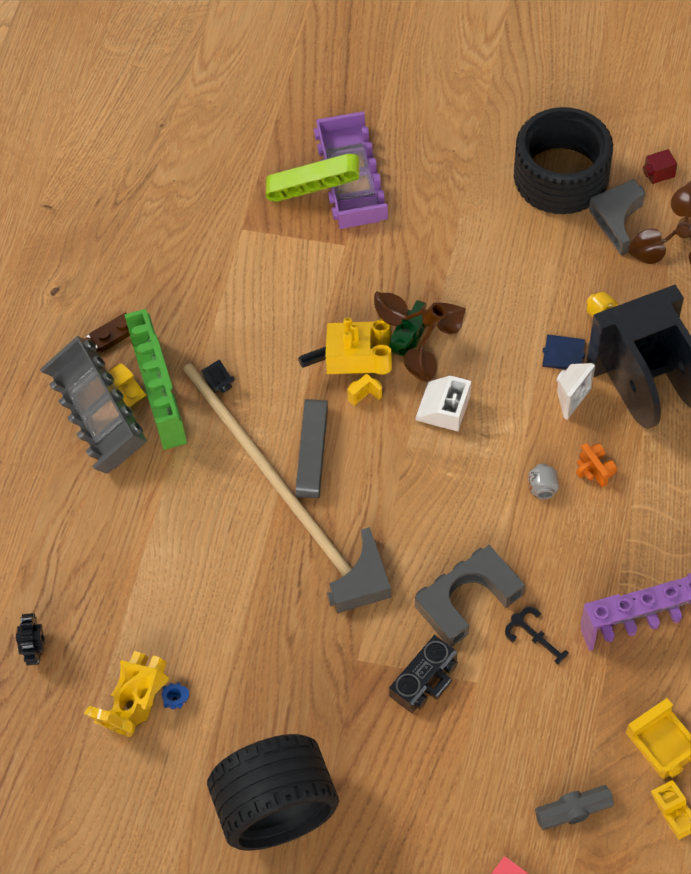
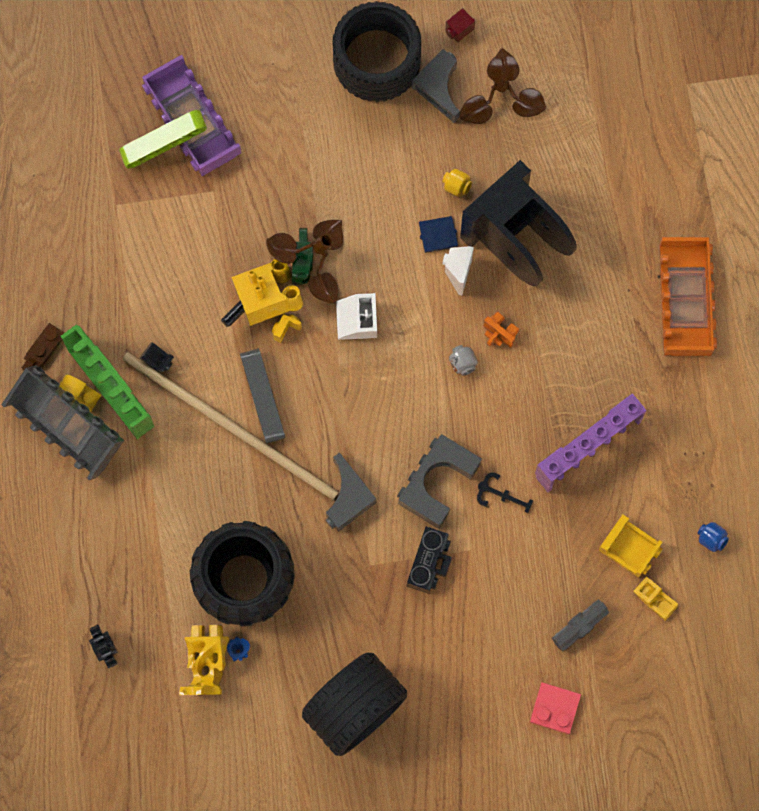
camera: 25 degrees left, 15 degrees up
(205, 578) = (234, 541): none -> black tyre

